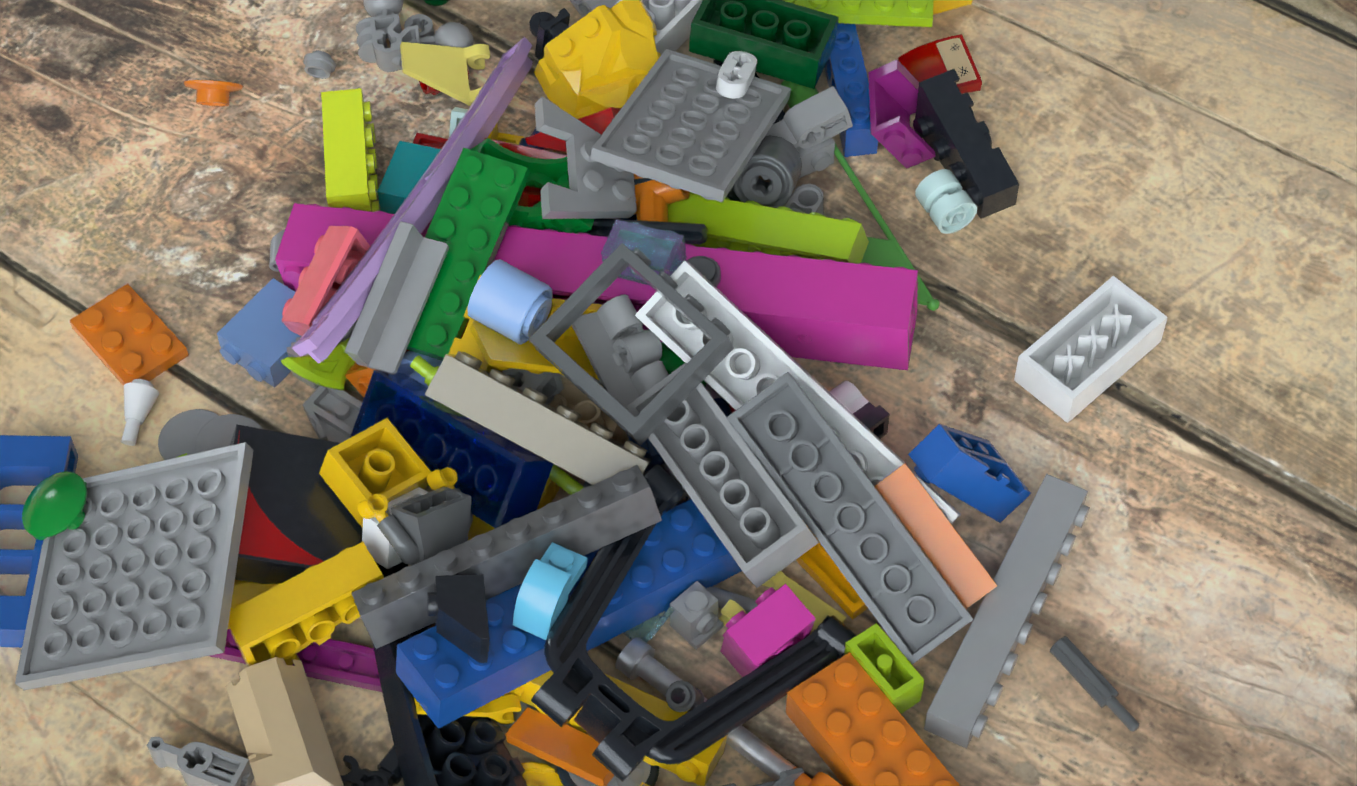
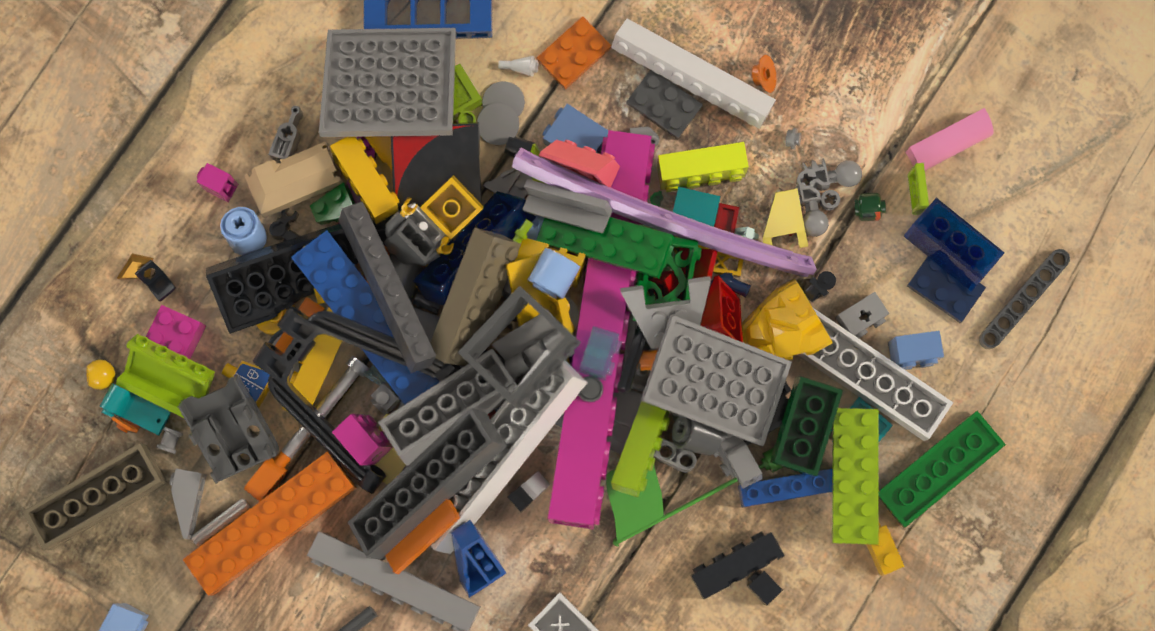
camera: 90 degrees right, 25 degrees up
(55, 505) = (436, 30): green dish -> none
(193, 178) = (693, 73): none -> white brick
(236, 222) = (664, 104): none -> dark grey plate
(282, 408) = (514, 144): none -> black brick
(344, 684) = (330, 205): none -> green wing
(461, 613) = (341, 263): black slope -> none
(547, 589) = (360, 311): medium azure brick -> none
(676, 697) = (319, 392): dark grey pin -> none
(736, 74) = (763, 413): white beam -> none
(887, 667) = (345, 507): lime brick -> none
(892, 101) = (757, 515): magenta panel -> none
(941, 57) = (809, 550): red slope -> none
(946, 201) = (700, 547): light aqua wheel -> none
(1002, 118) = (764, 587): none -> black brick

